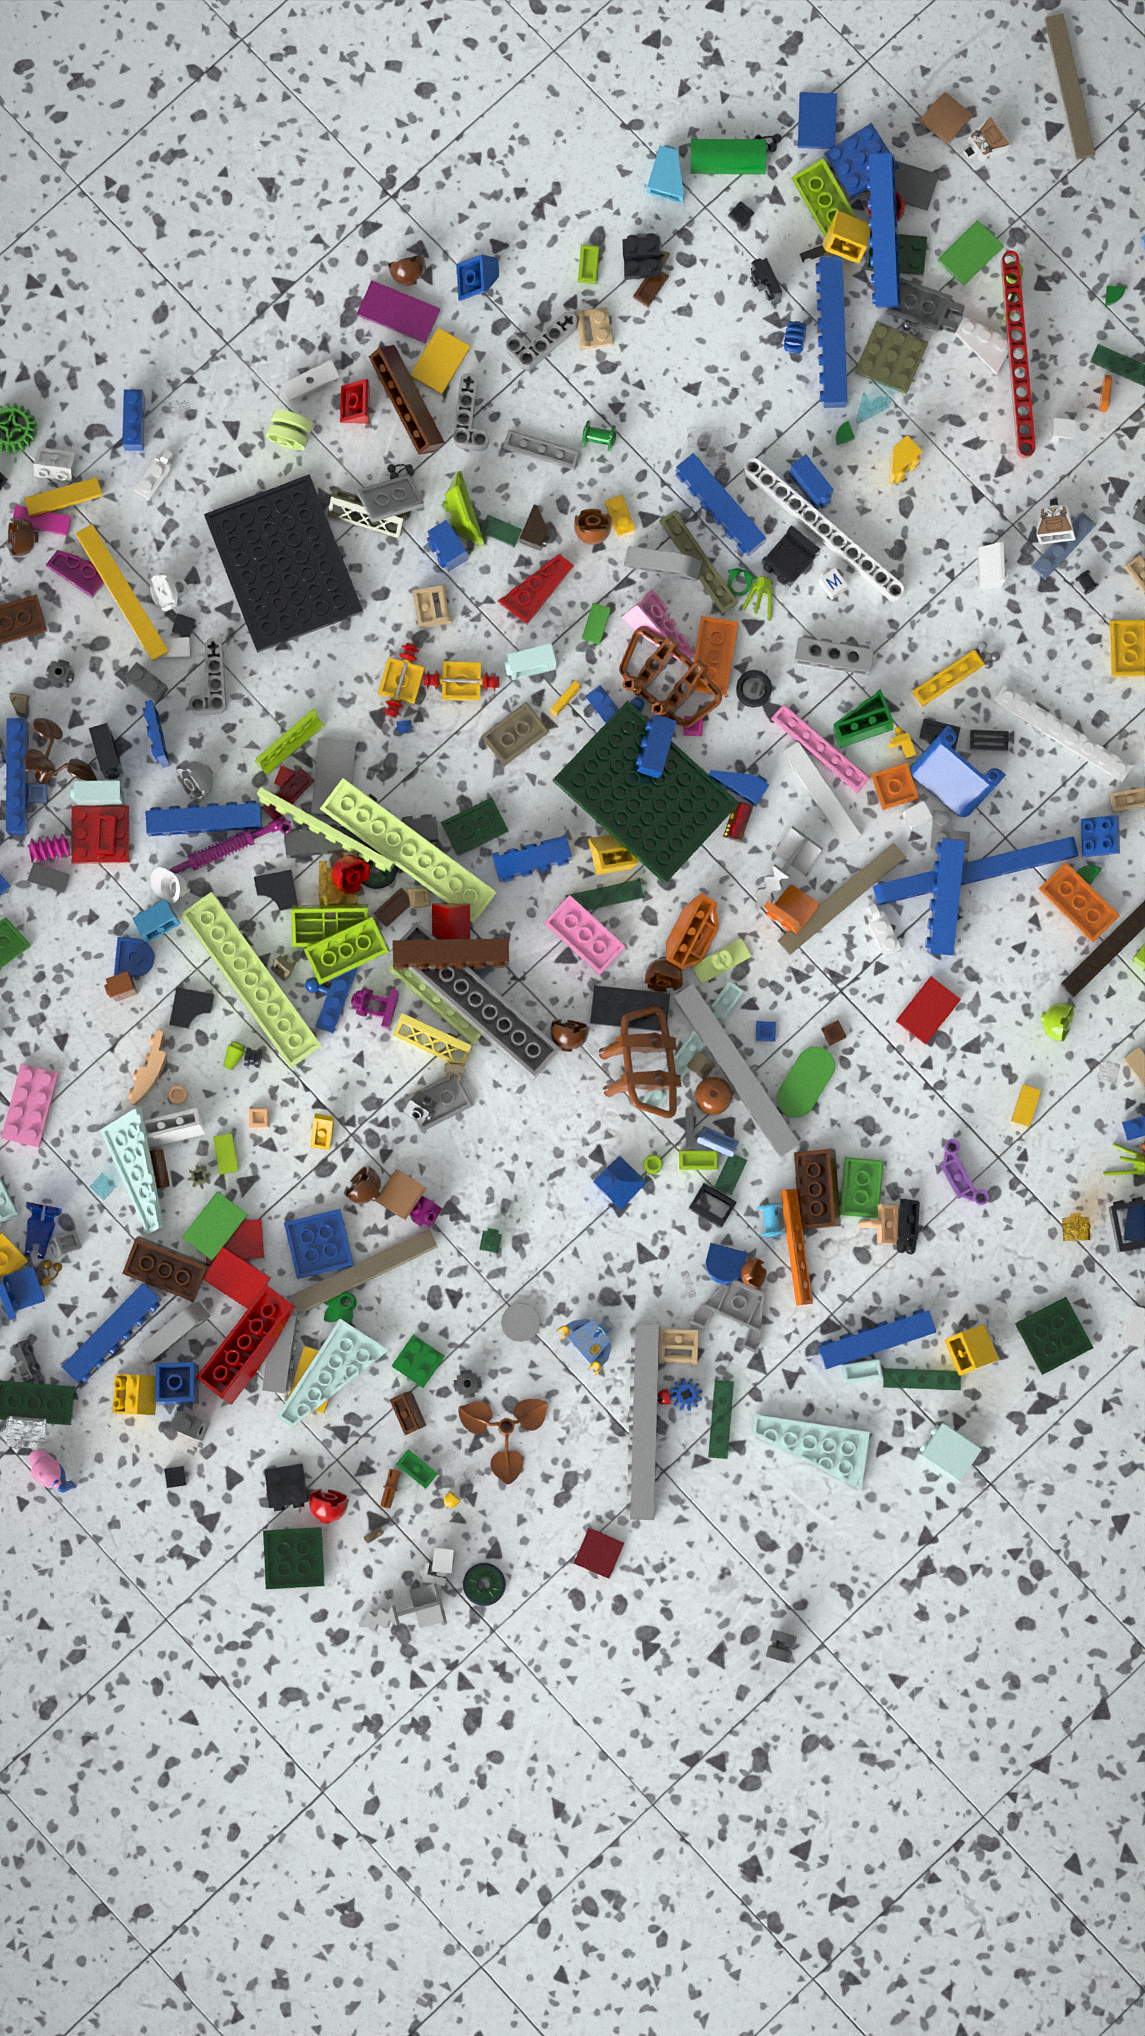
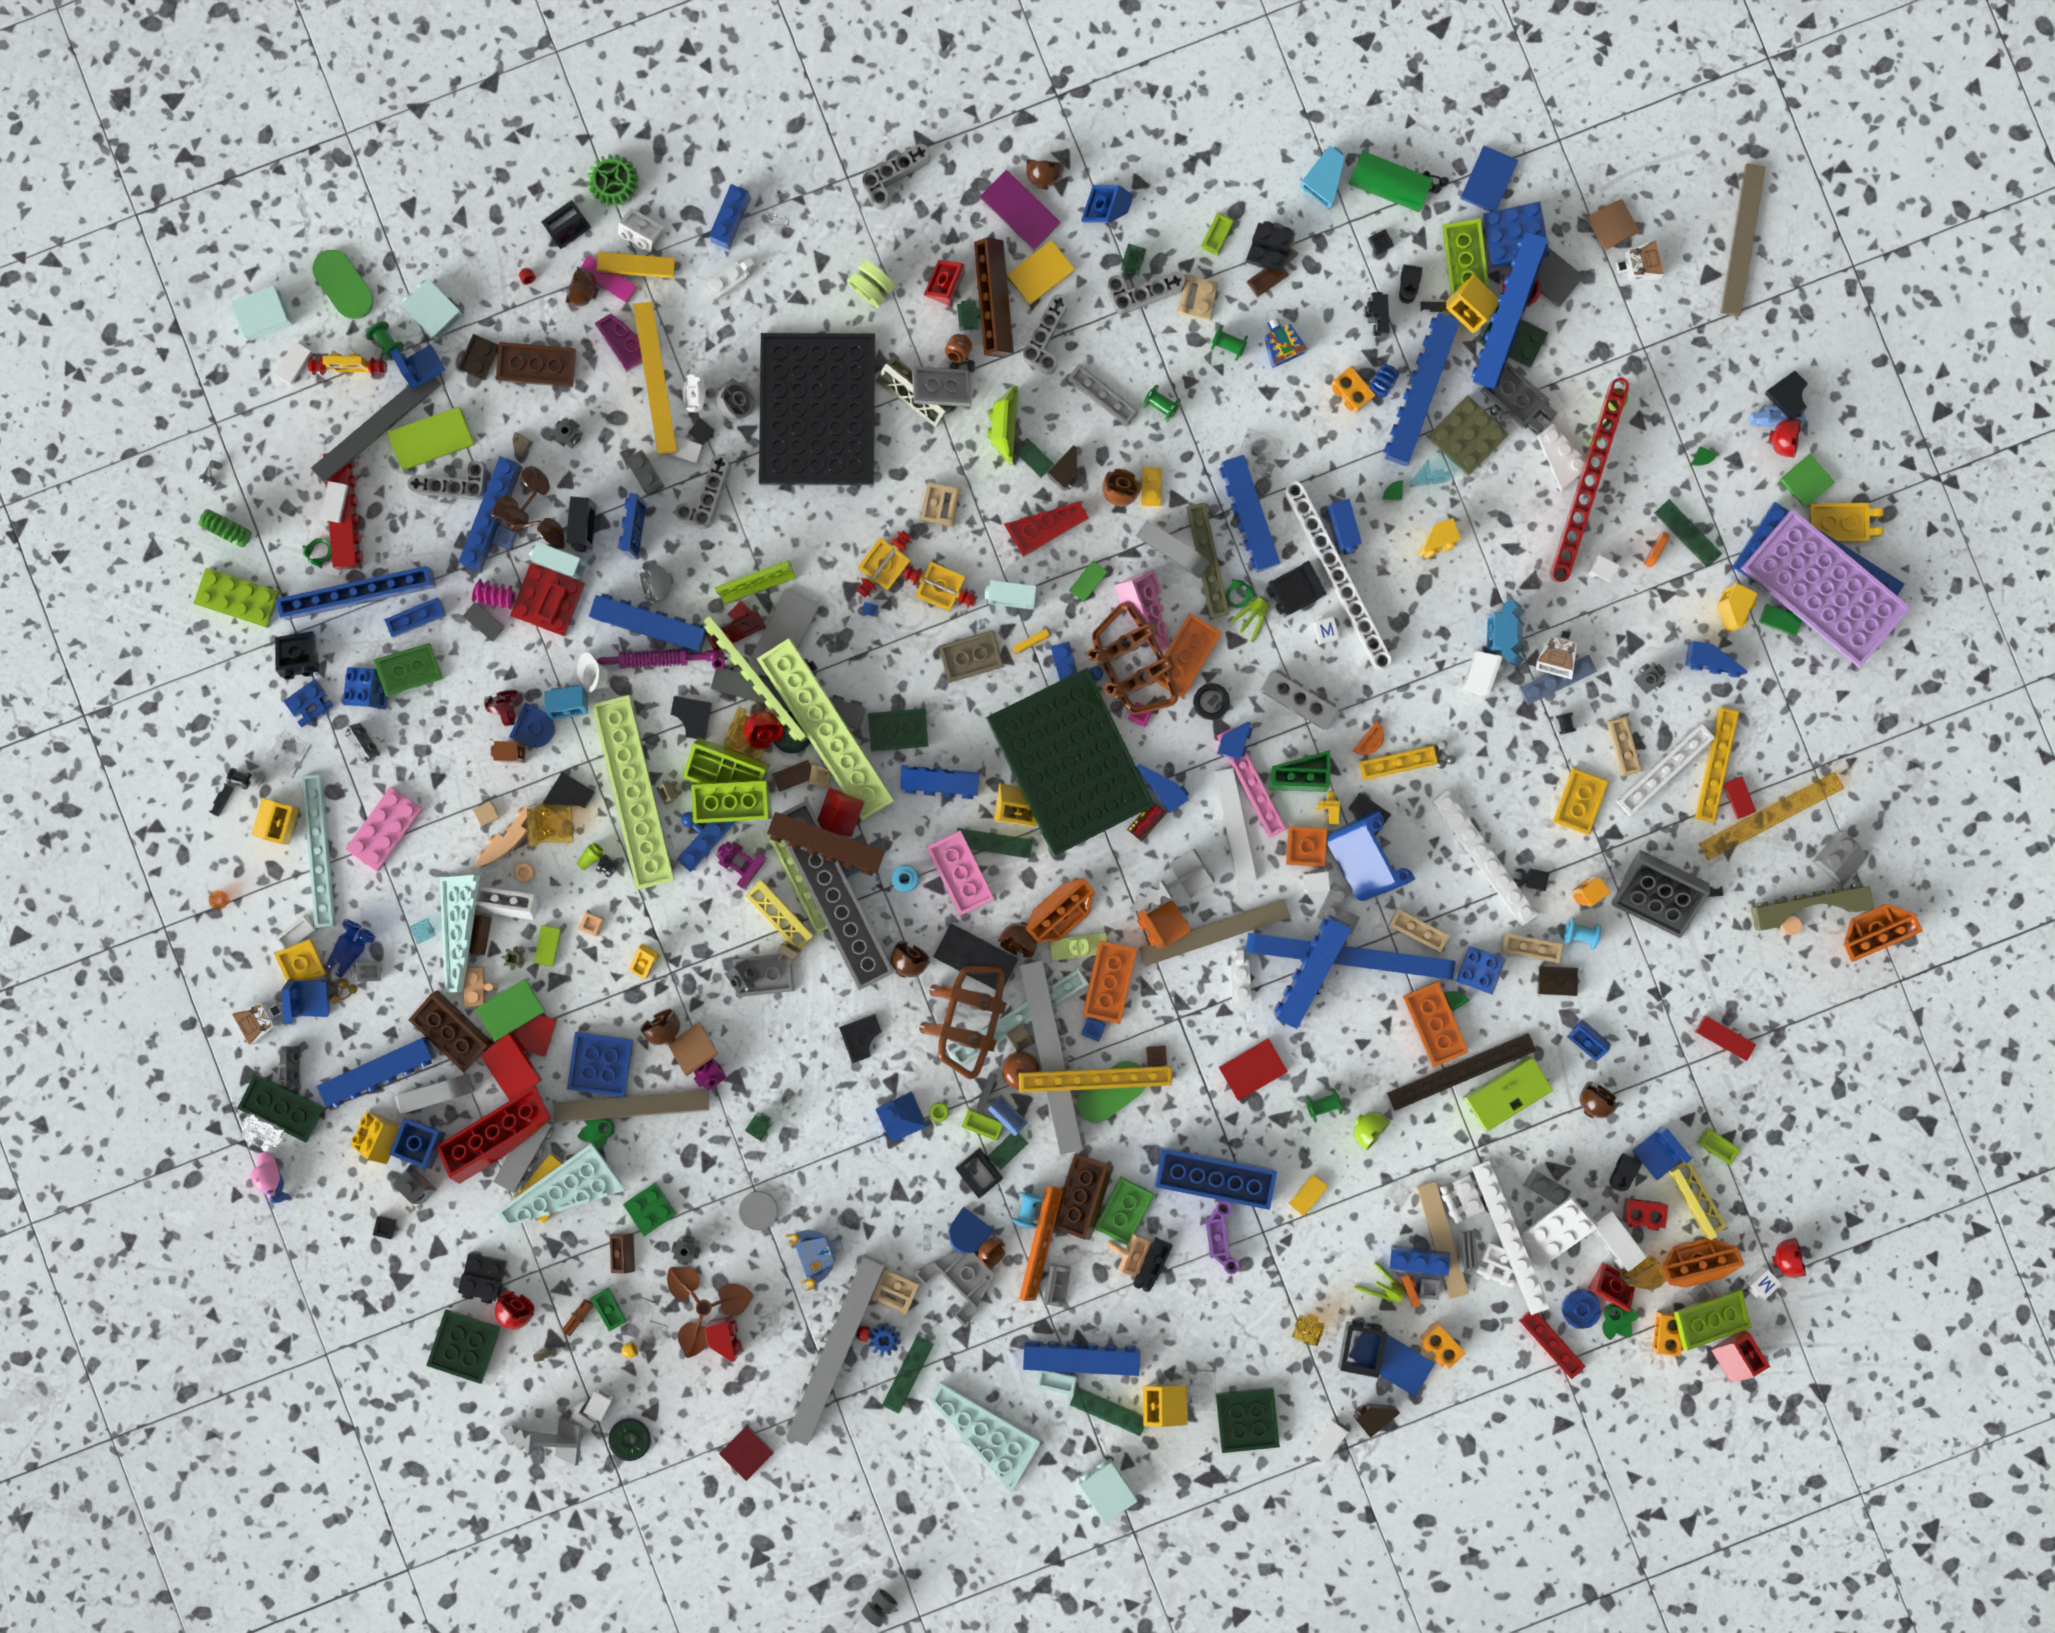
camera: 25 degrees right, 5 degrees up
(98, 944) = (504, 705): none -> dark red tile
(120, 1054) = (486, 813): none -> tan tile
(173, 1218) = (475, 987): none -> light nougat plate
(185, 1038) = (549, 824): none -> clear yellow bracket
(205, 584) = (735, 400): none -> light grey cylinder
(272, 319) = (899, 172): none -> light grey beam
(320, 375) = (898, 244): white tile -> none
(389, 425) = (968, 315): none -> clear green brick
(392, 457) = (958, 348): none -> dark orange head
(447, 546) = (976, 450): blue brick -> none
(521, 317) = (1133, 260): none -> clear green brick
(534, 1450) = (722, 1337): none -> red slope
(538, 967) = (904, 887): none -> medium azure hose
(550, 1124) = (858, 1037): none -> black tile
(639, 357) = (1229, 342): none -> green hose
(655, 746) = (1096, 722): blue brick -> none
(688, 339) = (1283, 343): none -> torso
(763, 981) = (1109, 982): none -> orange plate
(772, 352) = (1357, 386): none -> light orange brick
(782, 238) = (1410, 281): none -> black piece
(785, 1073) = (1095, 1079): none -> yellow tile
(789, 717) = (1233, 742): none -> blue slope
(826, 1280) = (1057, 1285): none -> light grey hinge
(915, 668) = (1371, 741): none -> orange tile
(933, 1122) = (1215, 1178): none -> blue brick
(970, 253) = (1583, 364): bright green tile -> none
(998, 520) = (1506, 632): none -> dark azure slope
(1005, 740) = (1427, 843): black tile -> none
(1006, 1016) = (1324, 1105): none -> green hose
(1029, 823) = (1418, 930): none -> tan plate
(1116, 735) = (1534, 879): none -> black plate

